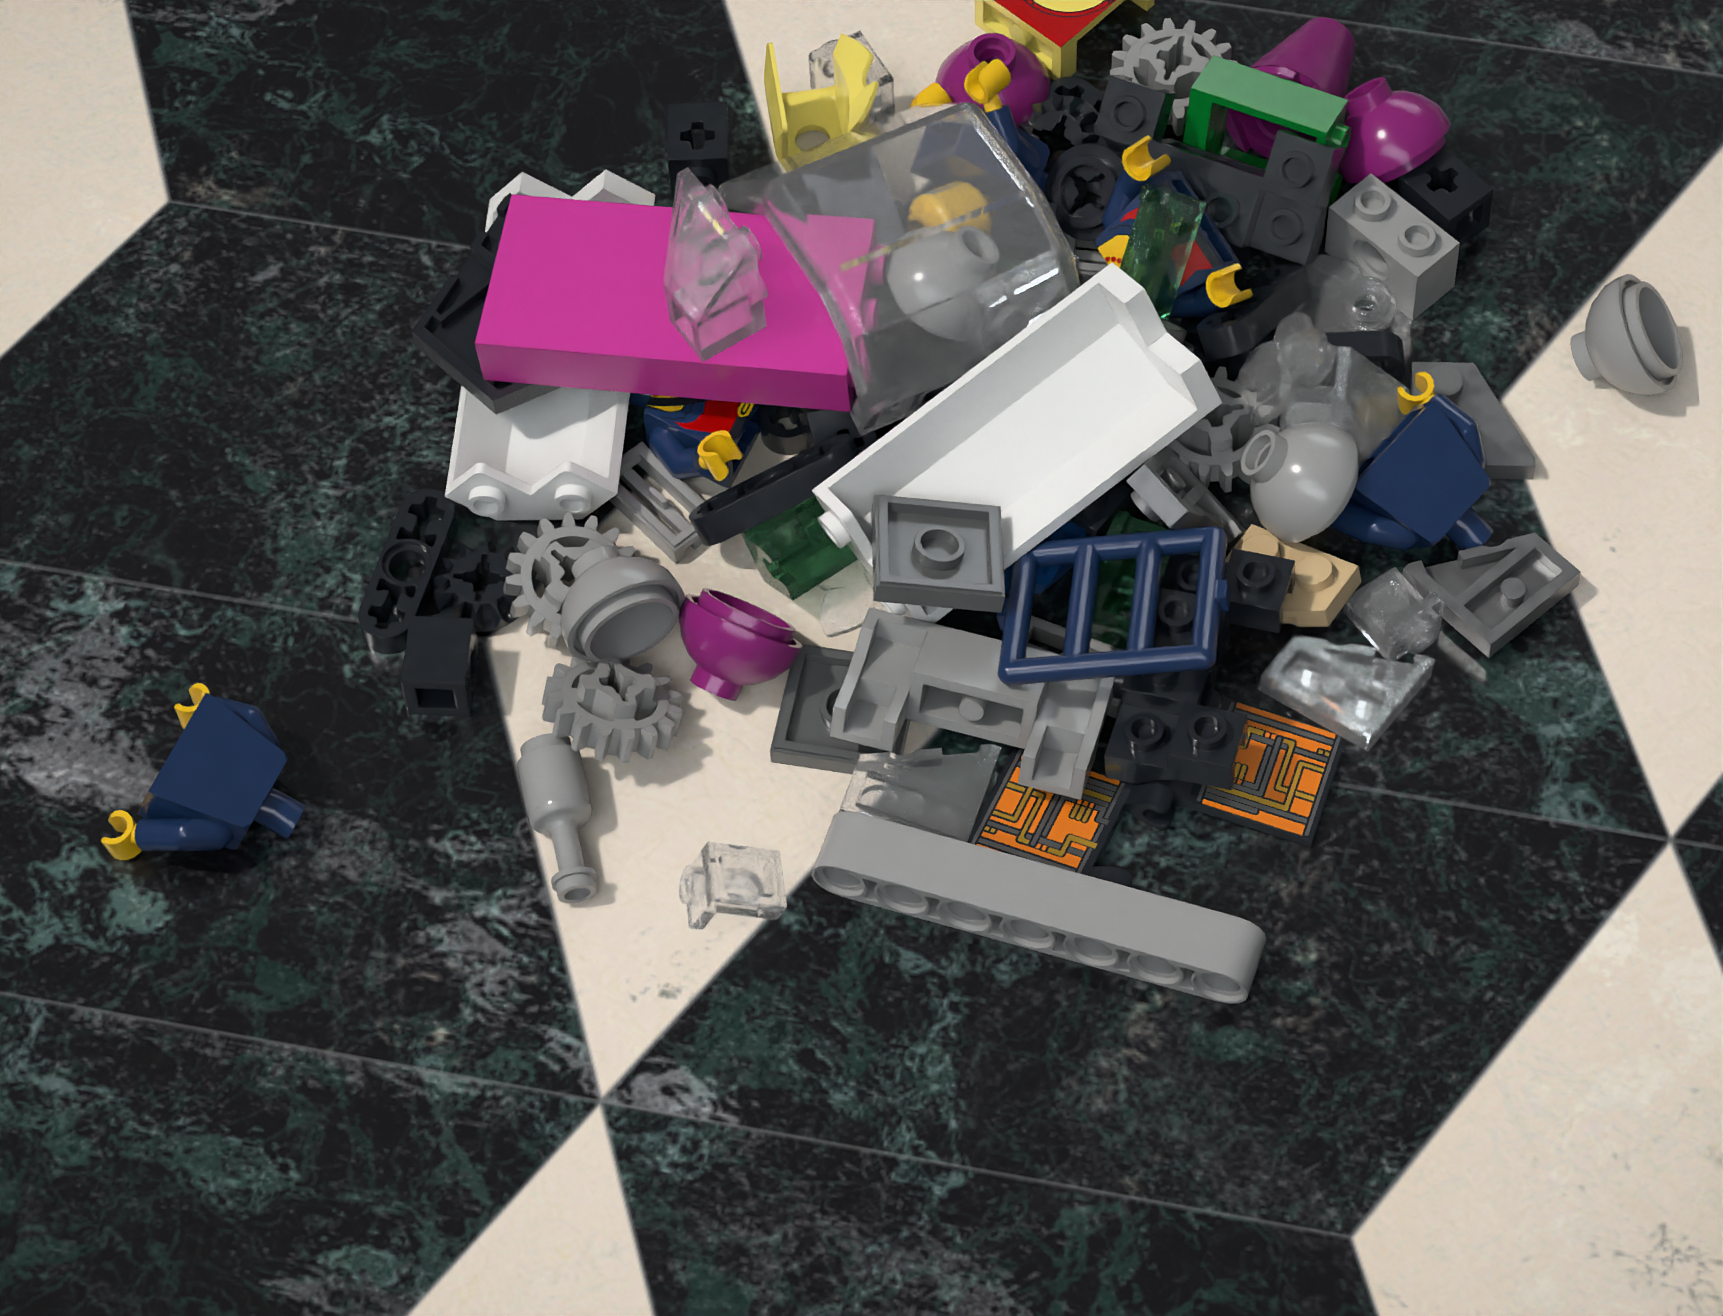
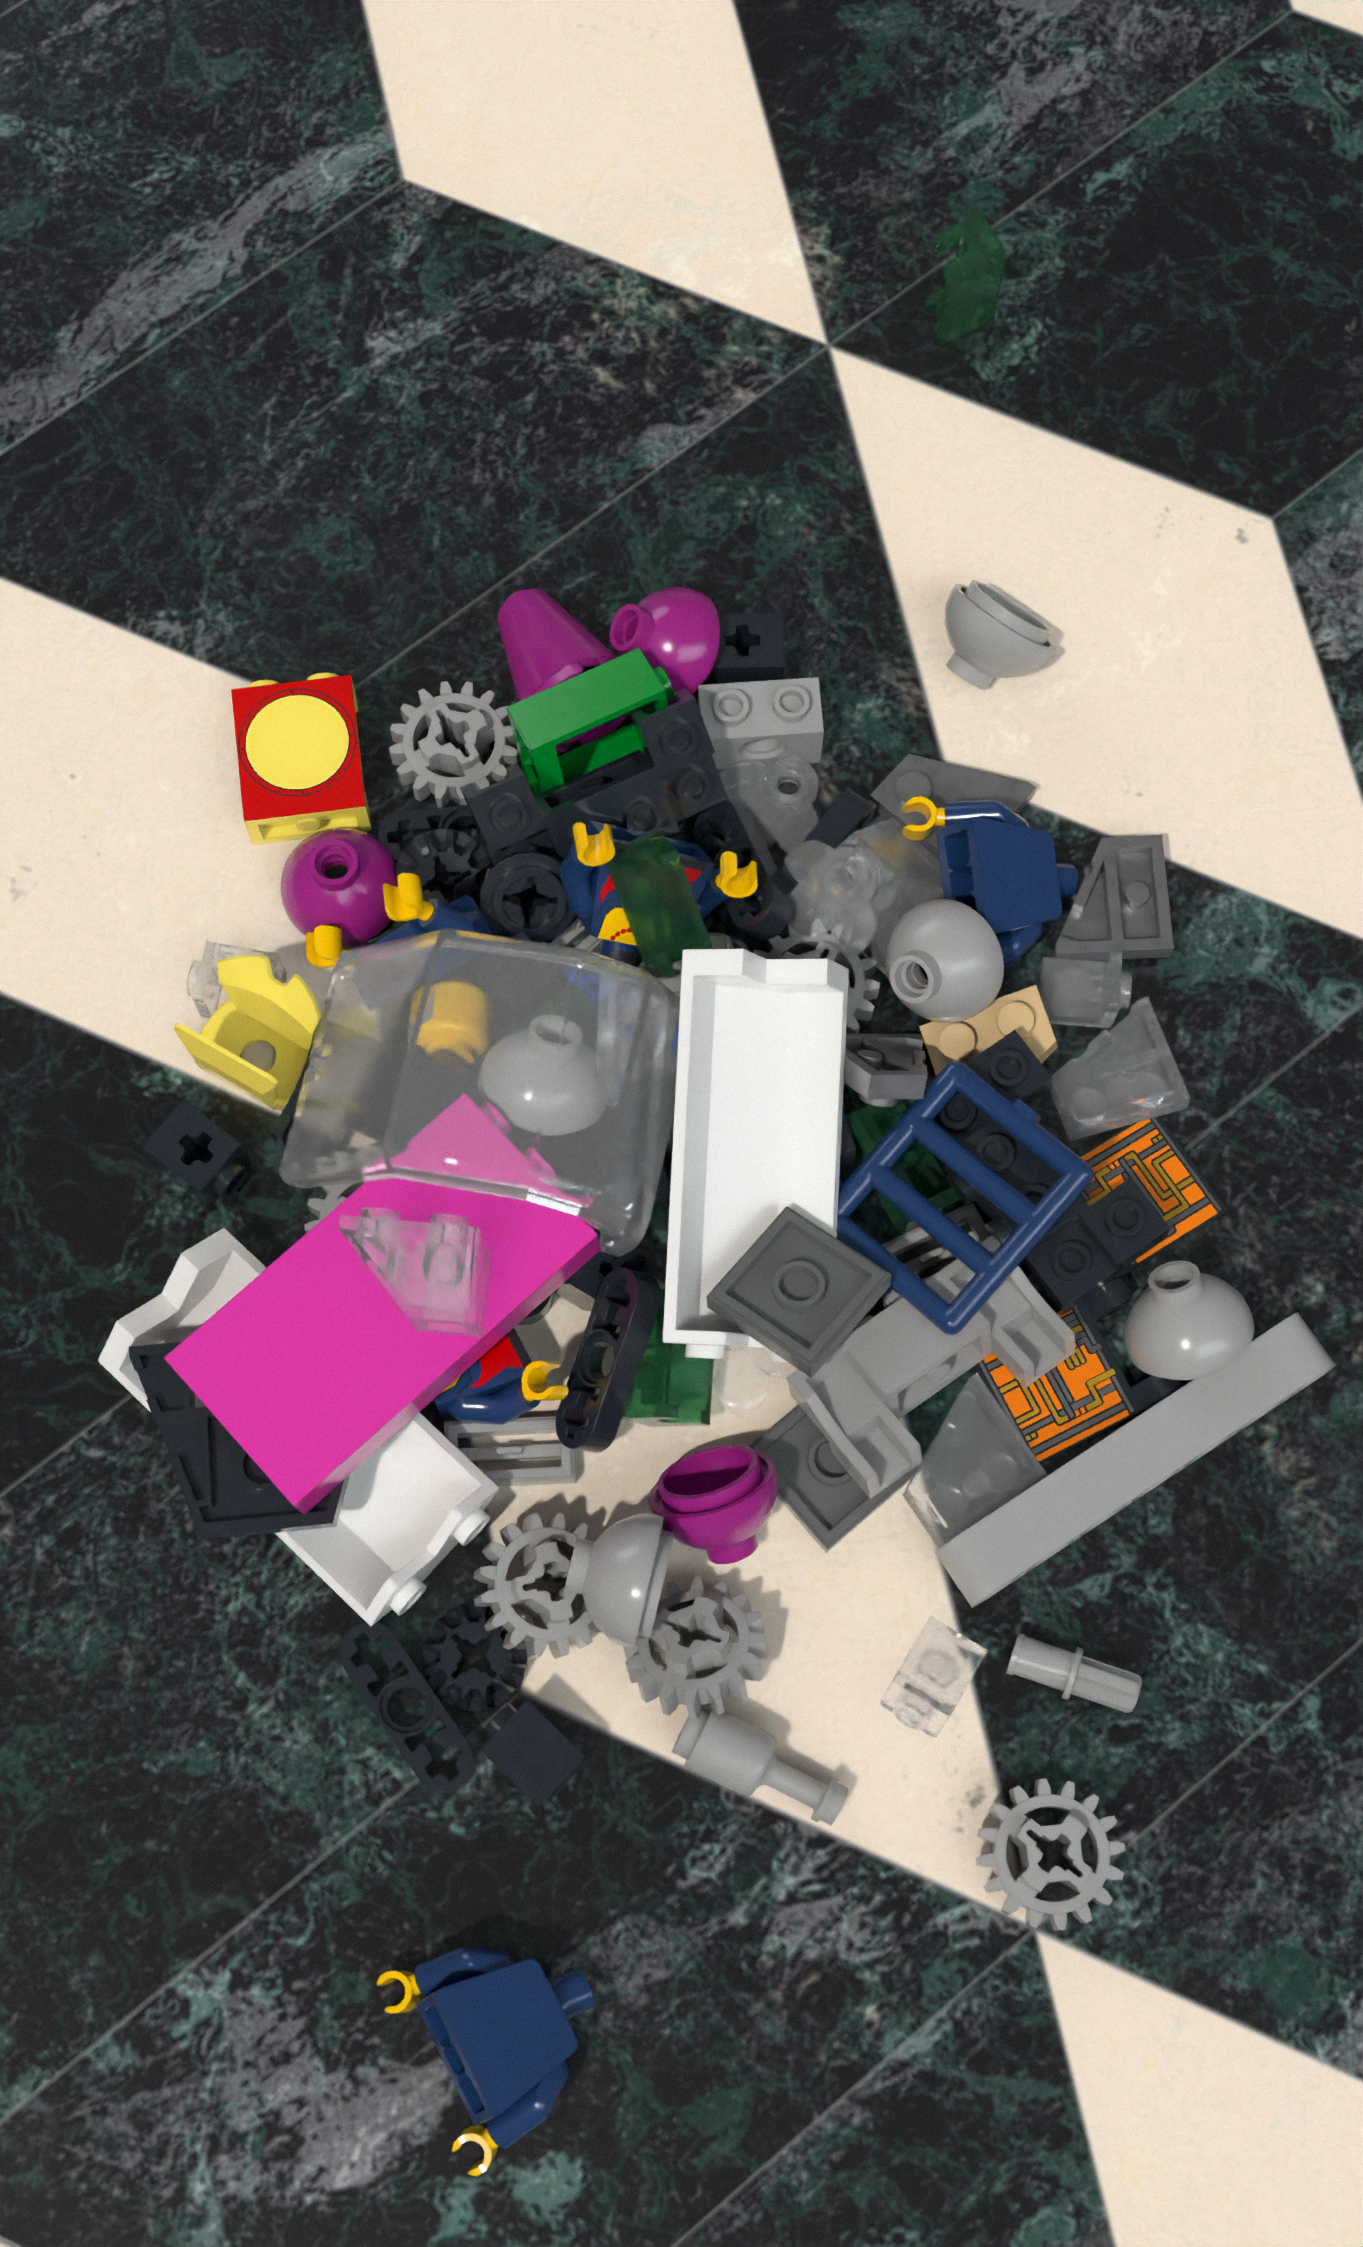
camera: 55 degrees left, 15 degrees up
(633, 1046) = (1069, 1830): none -> light grey gear
(822, 979) = (1074, 1674): none -> light grey axle
(1176, 849) = (1187, 1324): none -> light grey piece

